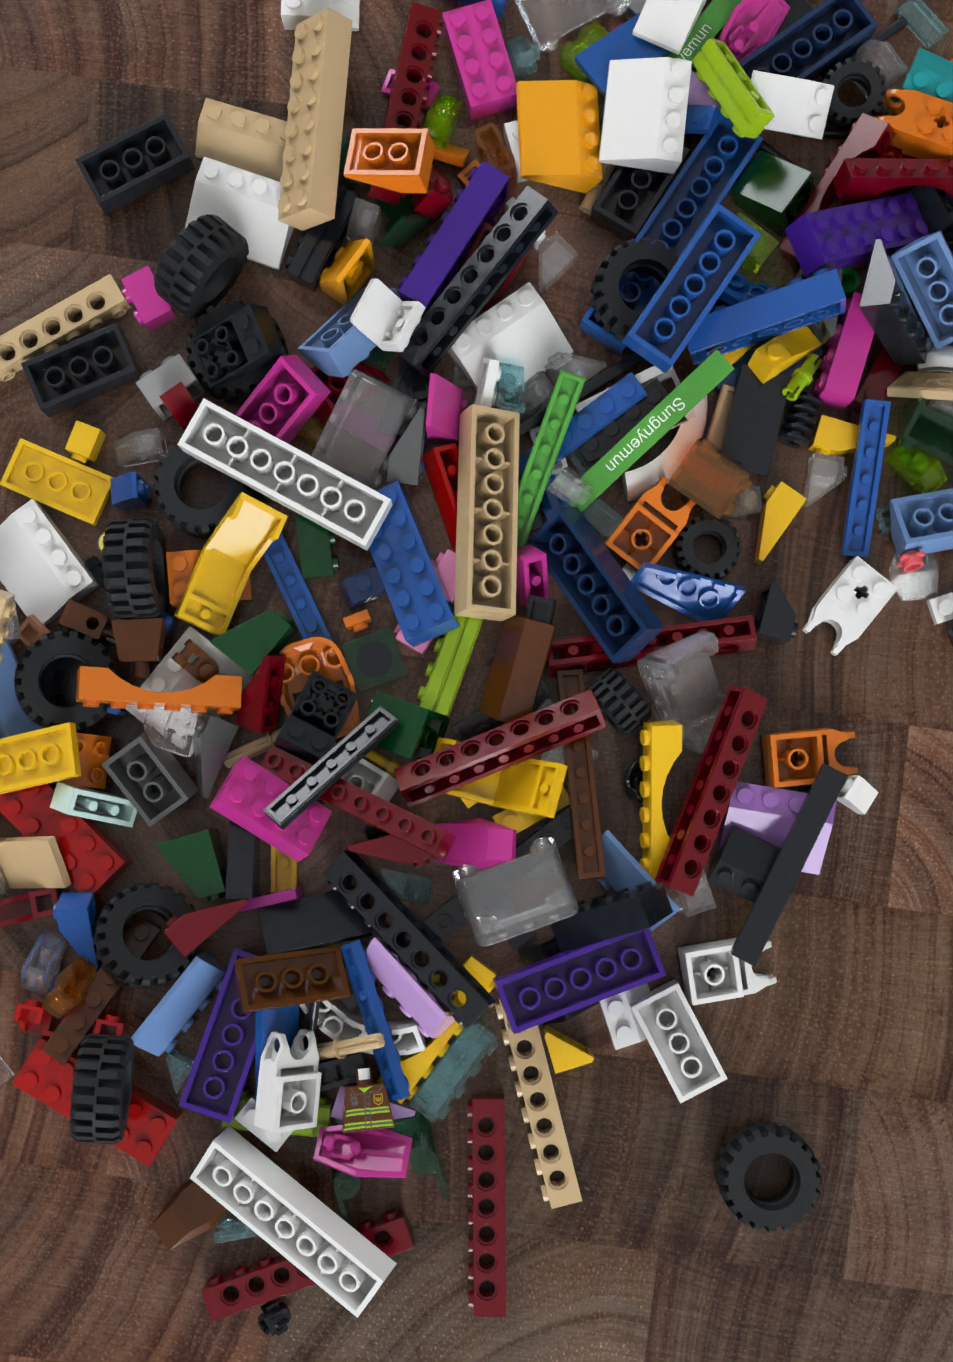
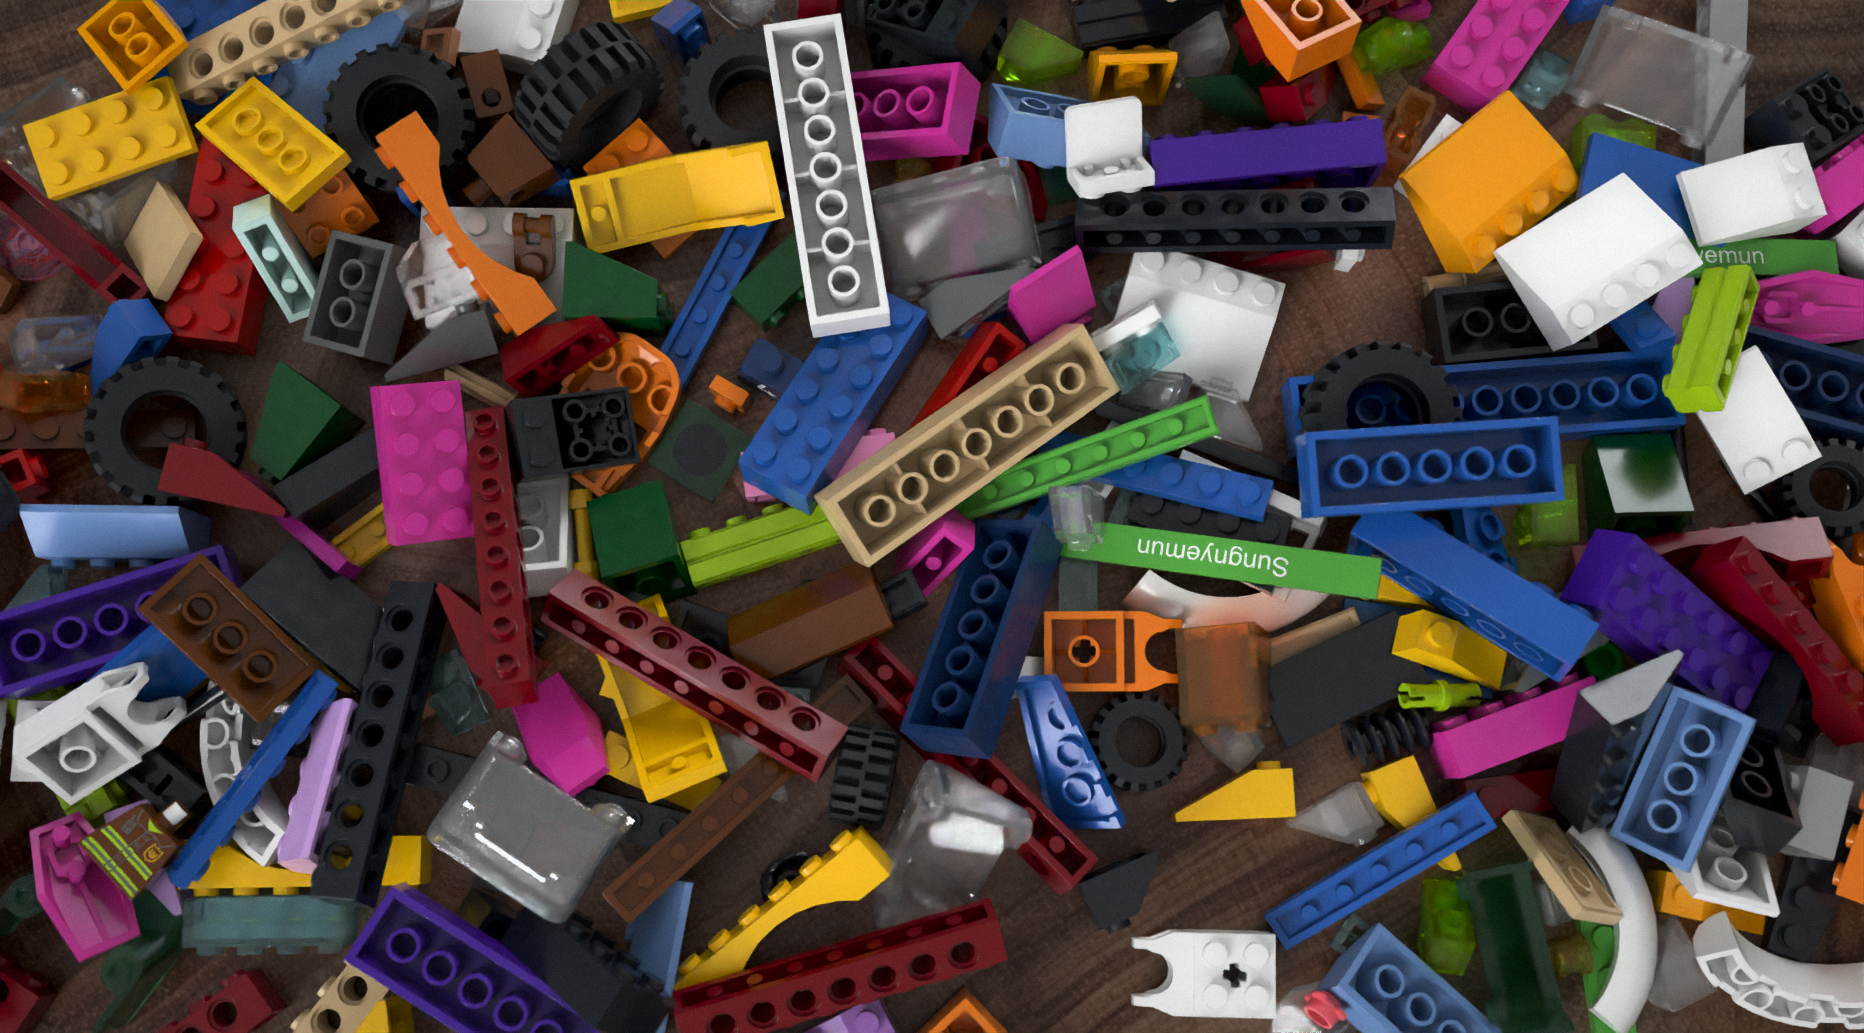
camera: 55 degrees right, 5 degrees down
(297, 313) = (1036, 56): none -> clear neon green slope
(331, 767) = (517, 490): tile -> none
(341, 1047) = (194, 764): tan axle -> none
(554, 260) = (1336, 296): clear slope -> none

